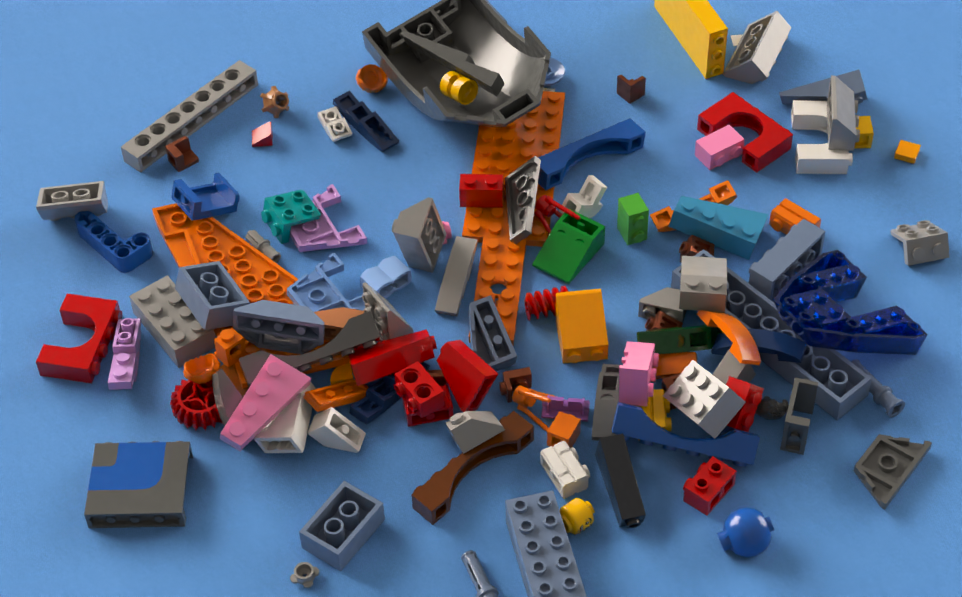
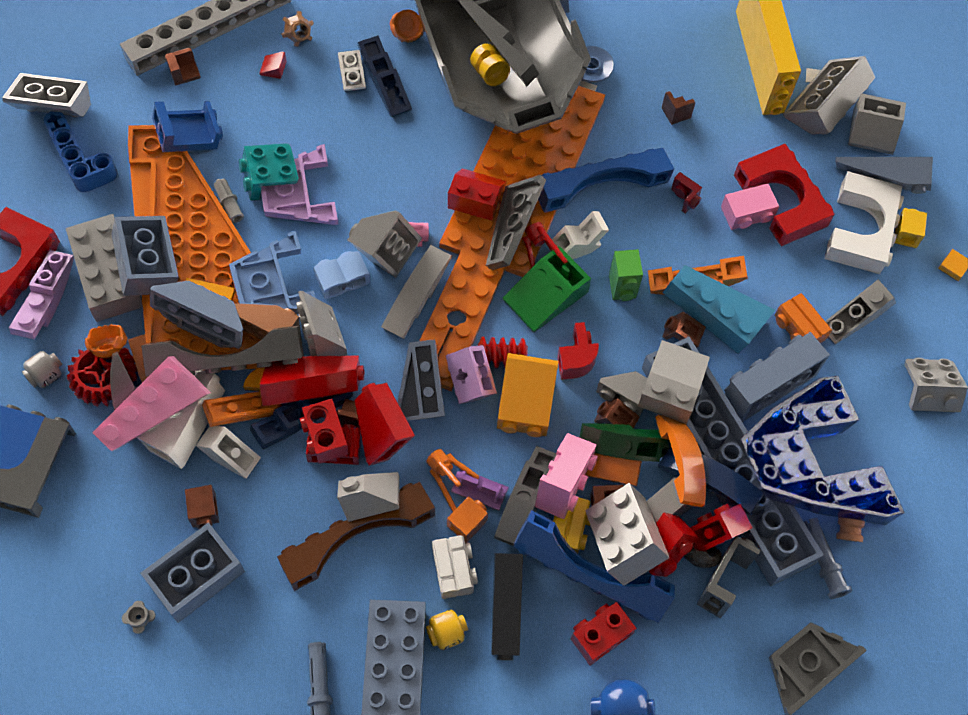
camera: 10 degrees right, 15 degrees up
(146, 411) = (42, 369): none -> light grey head
(226, 341) = (142, 317): orange brick -> none
(328, 476) = (201, 506): none -> copper brick
(513, 379) = (435, 439): copper bracket -> none
(527, 322) = (471, 374): none -> lavender brick
(614, 288) = (577, 359): none -> red brick
(661, 147) = (687, 190): none -> dark red bracket
(780, 377) = (719, 528): none -> red brick
(804, 60) = (876, 123): none -> light grey slope
(841, 116) = (894, 210): light grey slope -> none
(841, 201) = (860, 311): none -> light grey slope
(888, 360) = (850, 529): none -> nougat wheel

